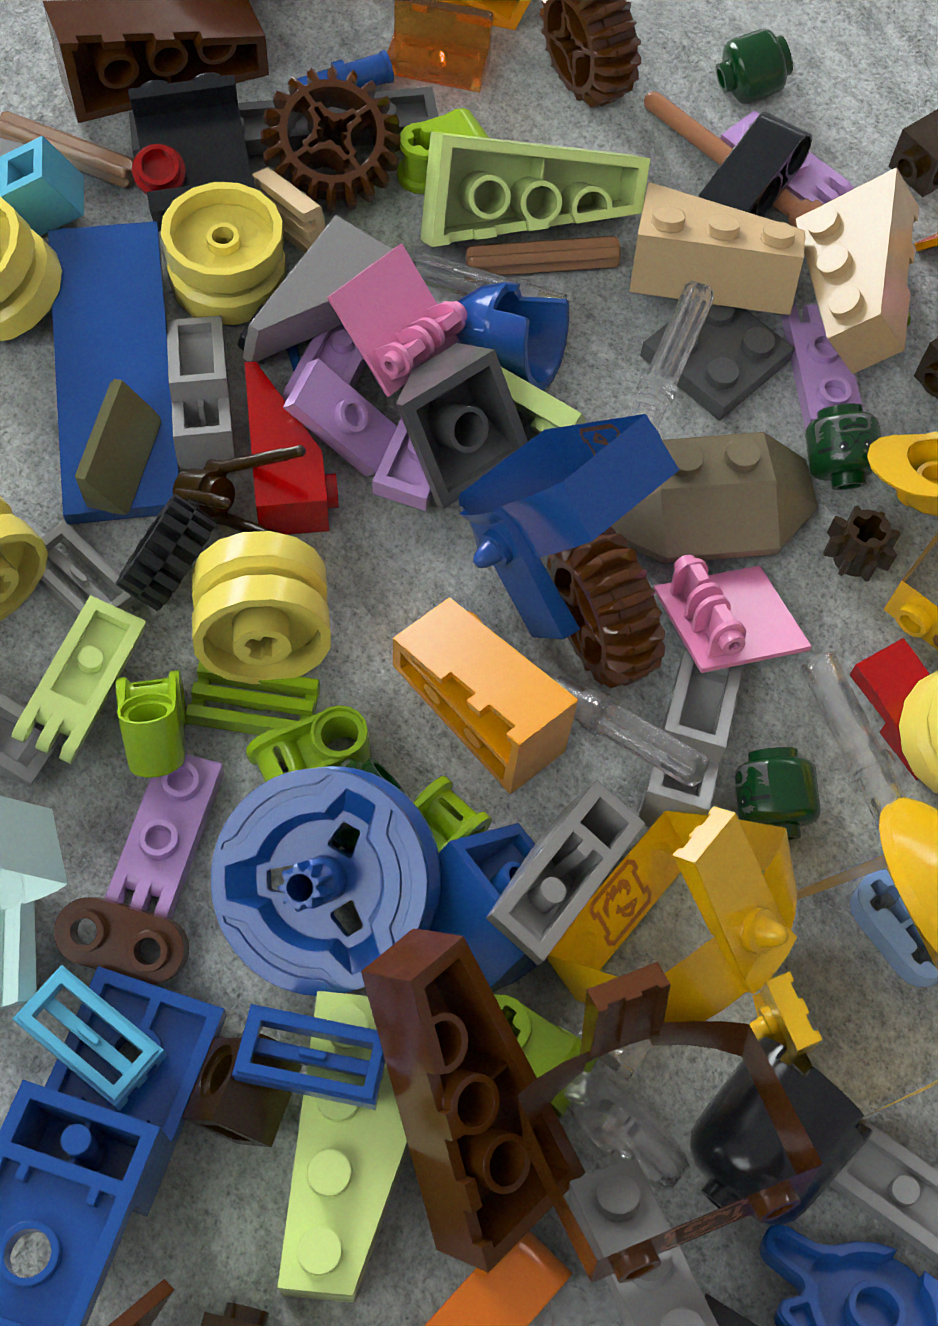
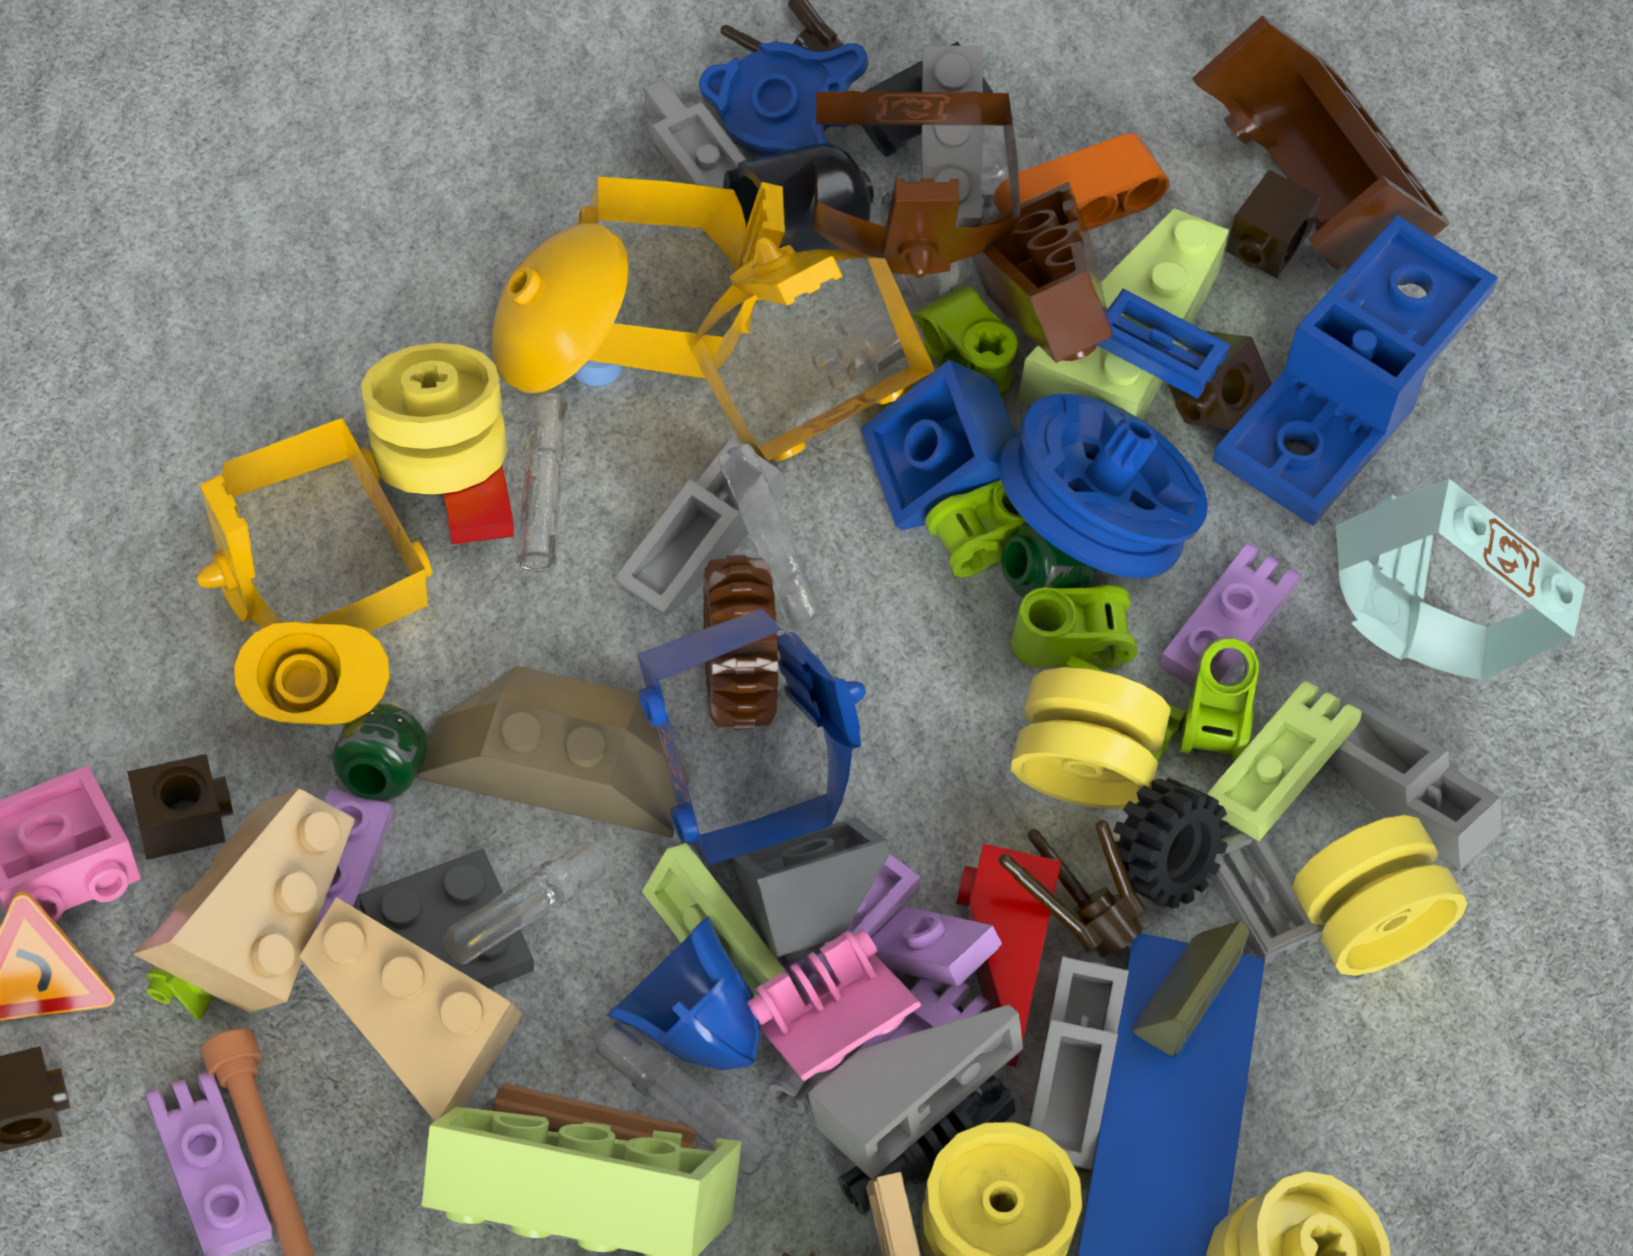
camera: 160 degrees left, 5 degrees down
(119, 939) = (1288, 536): reddish brown plate -> none
(132, 1073) = (1328, 458): medium azure tile -> none
(486, 692) = (886, 617): light orange wedge -> none
(564, 871) = (890, 426): light grey slope -> none
(728, 615) = (603, 615): bright pink hinge -> none
(759, 166) = (296, 1106): black beam -> none
(778, 790) = (648, 454): dark green head -> none
(861, 543) = (424, 648): dark brown gear -> none

